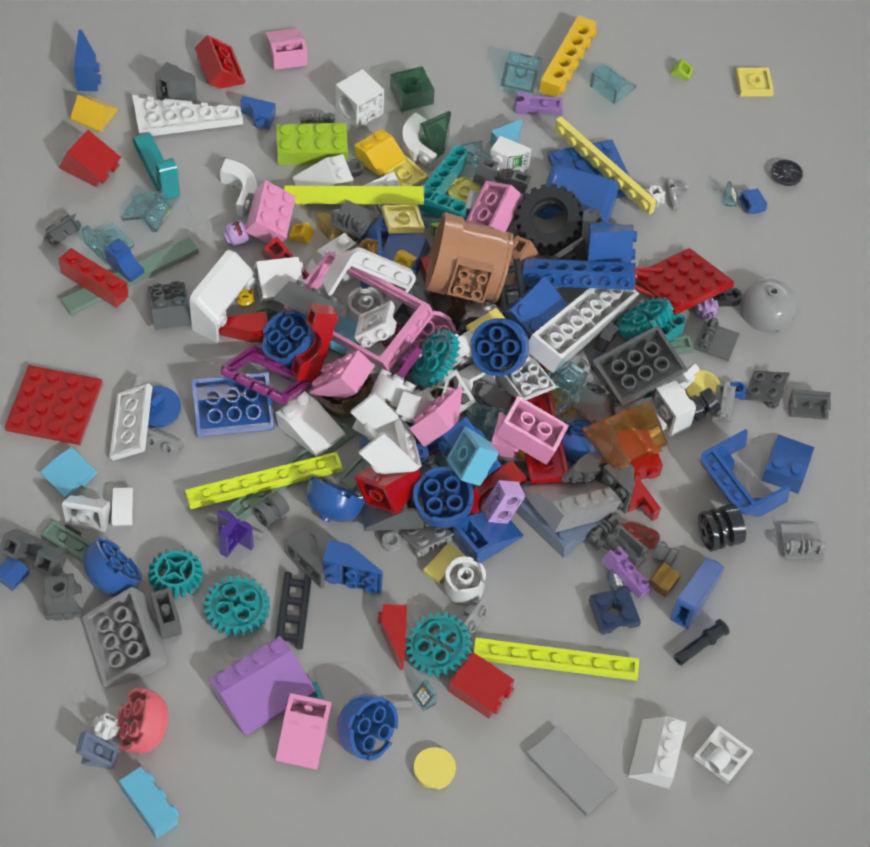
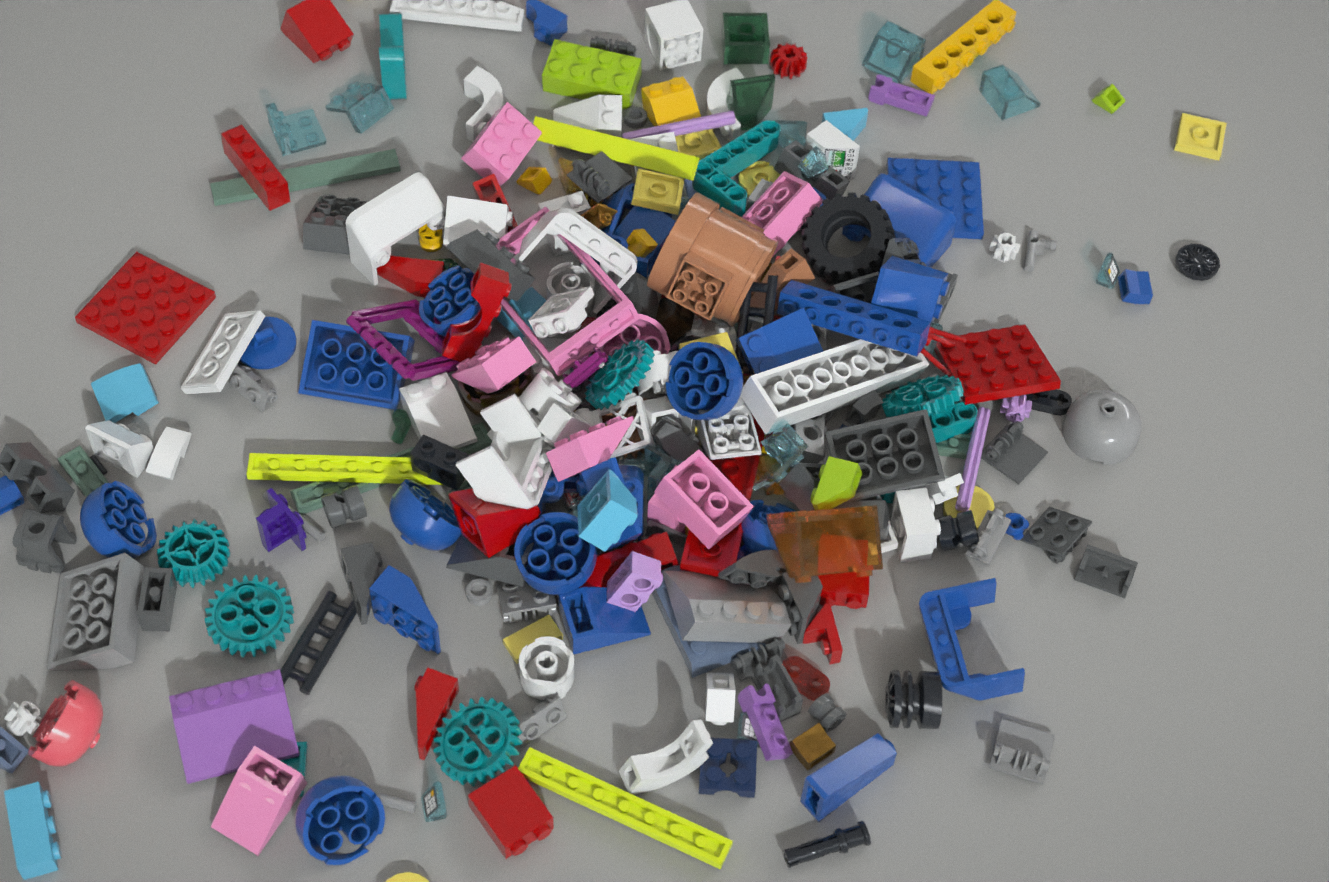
camera: 20 degrees right, 0 degrees up
(66, 224) = (239, 103): dark grey hinge -> none
(122, 260) = (300, 156): blue arch -> none
(235, 233) = (450, 159): lavender head -> none
(285, 437) = (402, 425): none -> clear green arm
(330, 457) = (437, 462): none -> black brick
(396, 166) = (686, 126): none -> lavender axle
(448, 97) = (788, 60): none -> red gear
(503, 169) = (813, 163): none -> clear light blue slope
(576, 618) = (669, 764): none -> white arch
(590, 565) = (720, 698): none -> white slope
(605, 165) = (952, 192): light yellow plate -> none
(616, 394) = (837, 483): none -> lime slope
(693, 352) = (973, 460): none -> lavender axle
(788, 463) = (1044, 641): blue slope -> none

